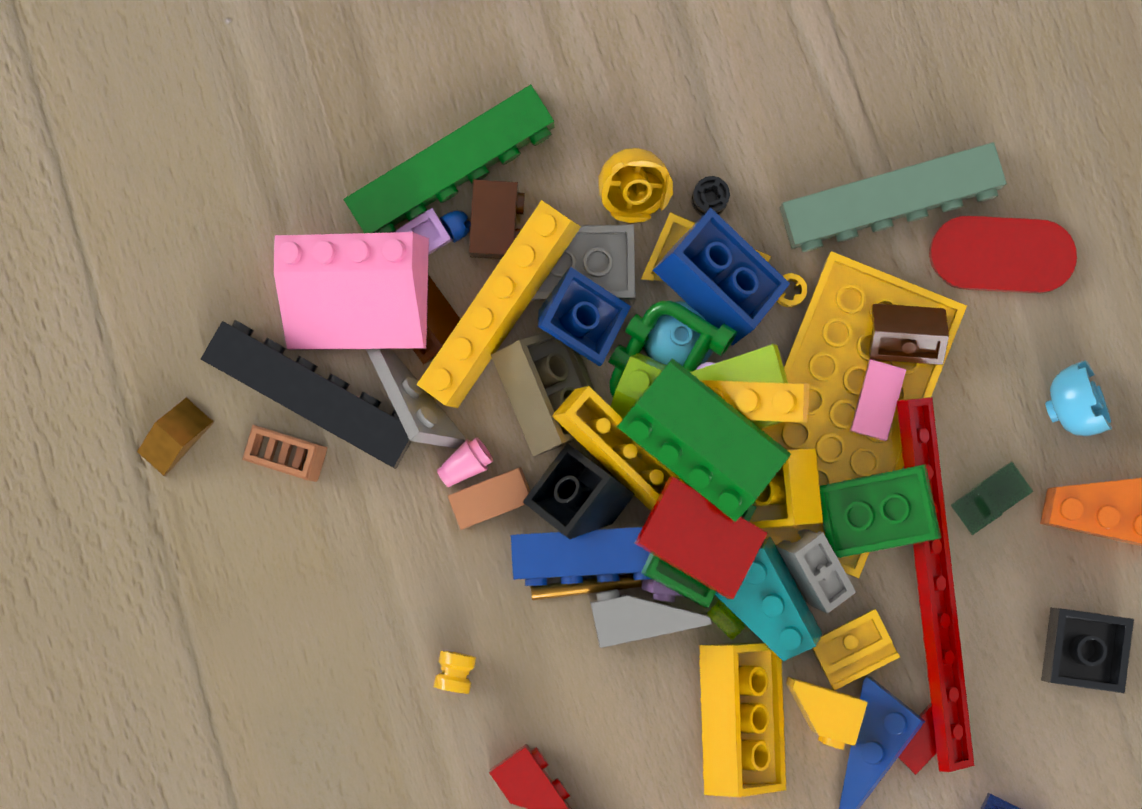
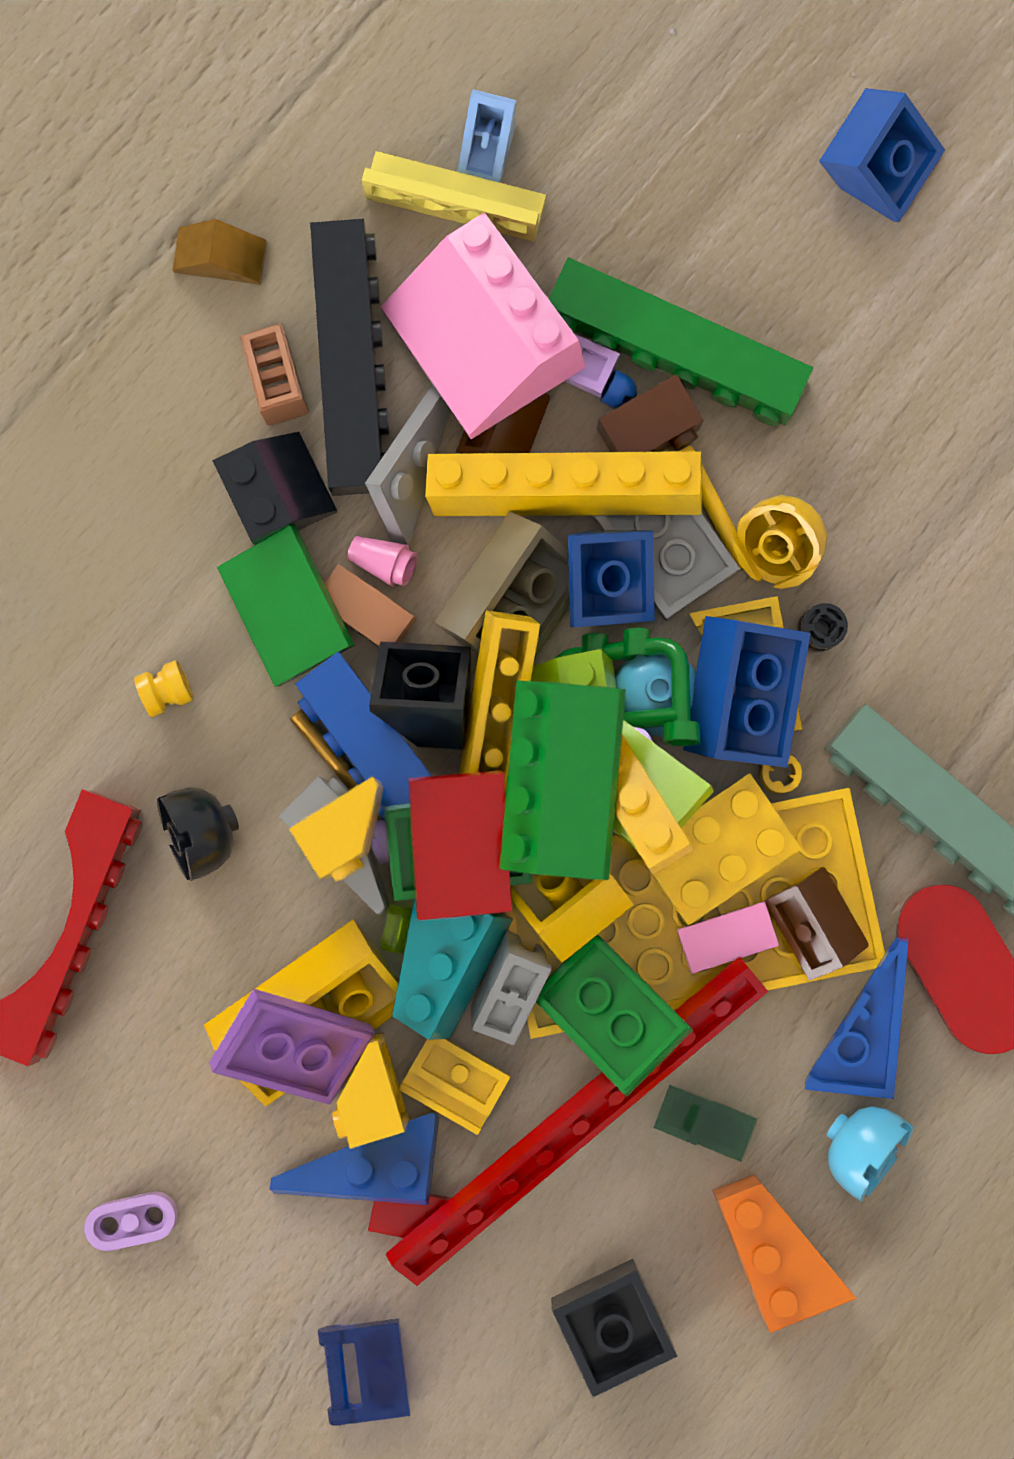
camera: 60 degrees right, 0 degrees up
(221, 199) = (487, 135): none -> light blue slope
(243, 247) = (453, 195): none -> light yellow fence
(366, 503) = (274, 485): none -> black slope
(453, 551) = (285, 605): none -> green tile
(569, 712) = (198, 830): none -> black cylinder
(579, 213) = (717, 512): none -> yellow bar
(643, 611) = (341, 831): none -> yellow slope
(760, 743) = (291, 1047): none -> medium lavender tile
(819, 353) = (734, 844): none -> yellow plate
(1009, 355) = (866, 1044): none -> blue wing

